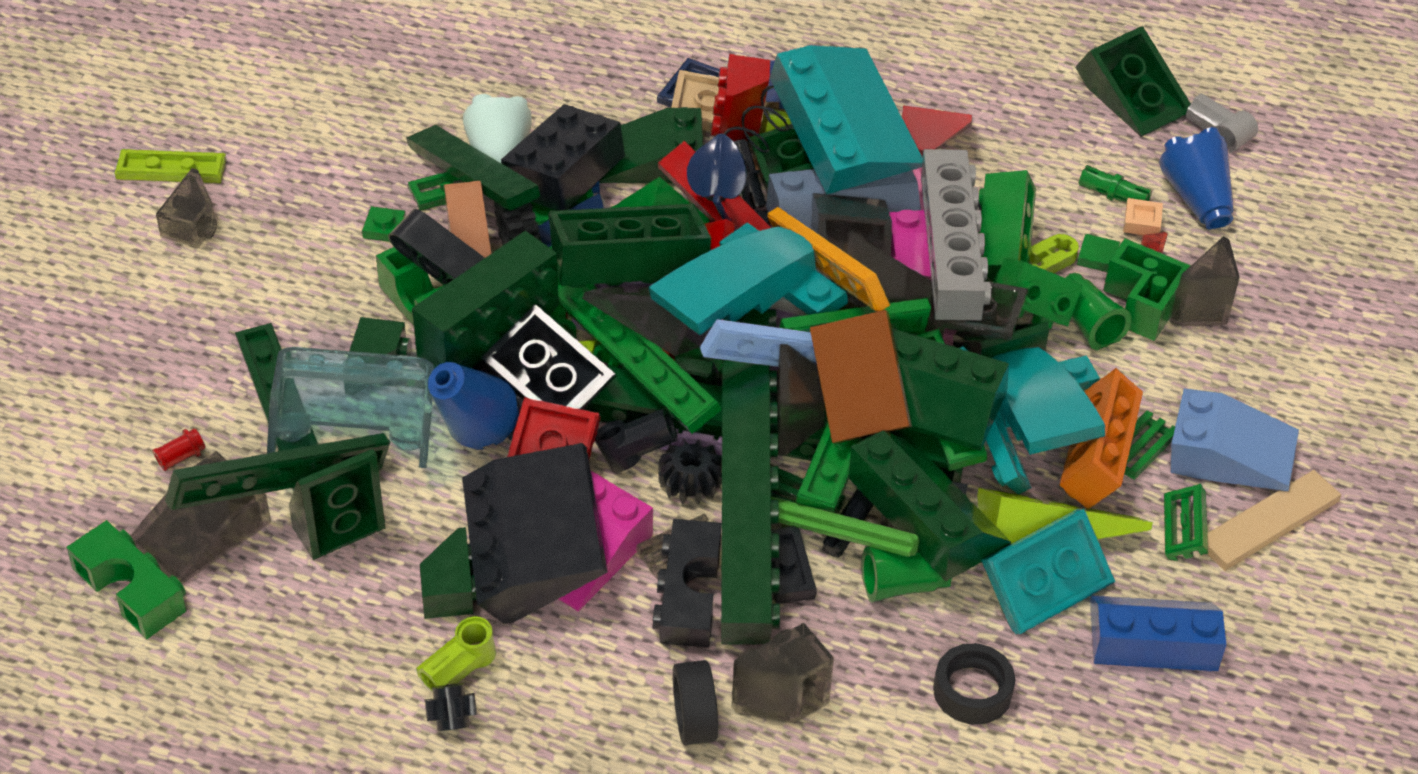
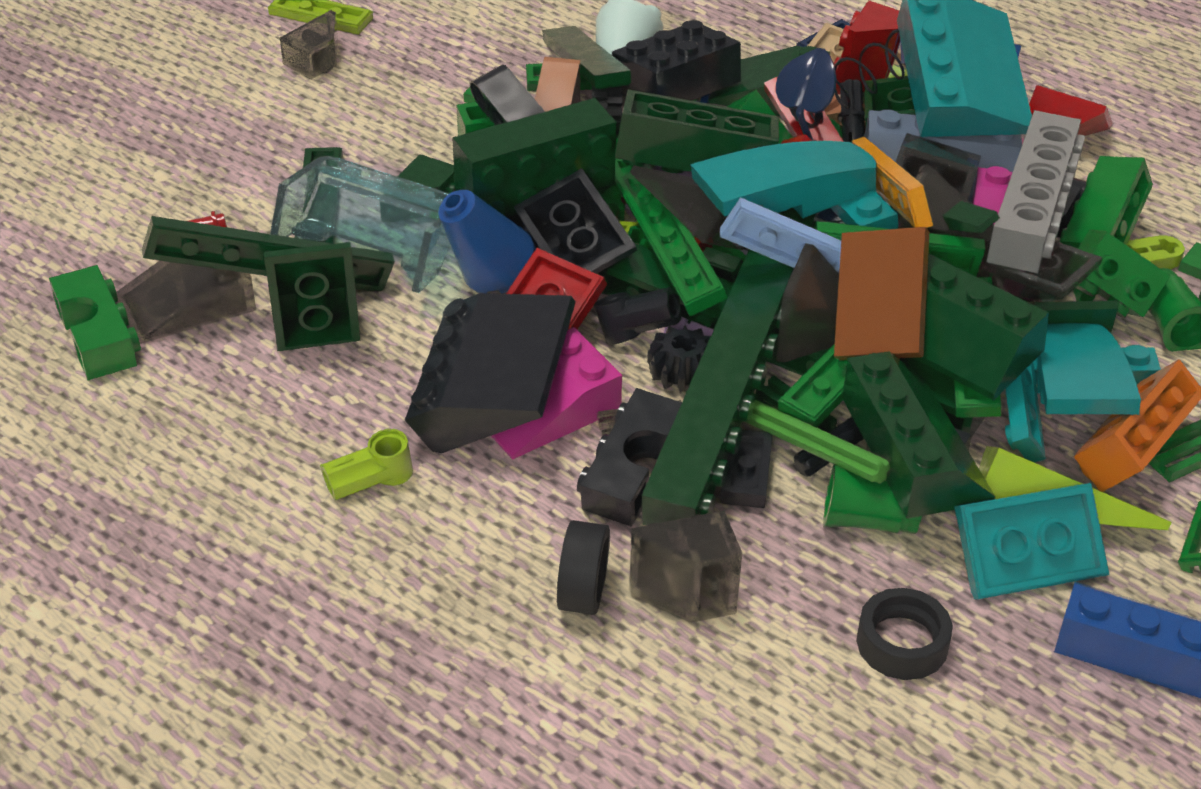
camera: 20 degrees right, 5 degrees down
(447, 579) = (387, 393): dark green slope -> none
(450, 707) = (335, 508): black gear -> none
(912, 284) = (970, 217): none -> dark green piece

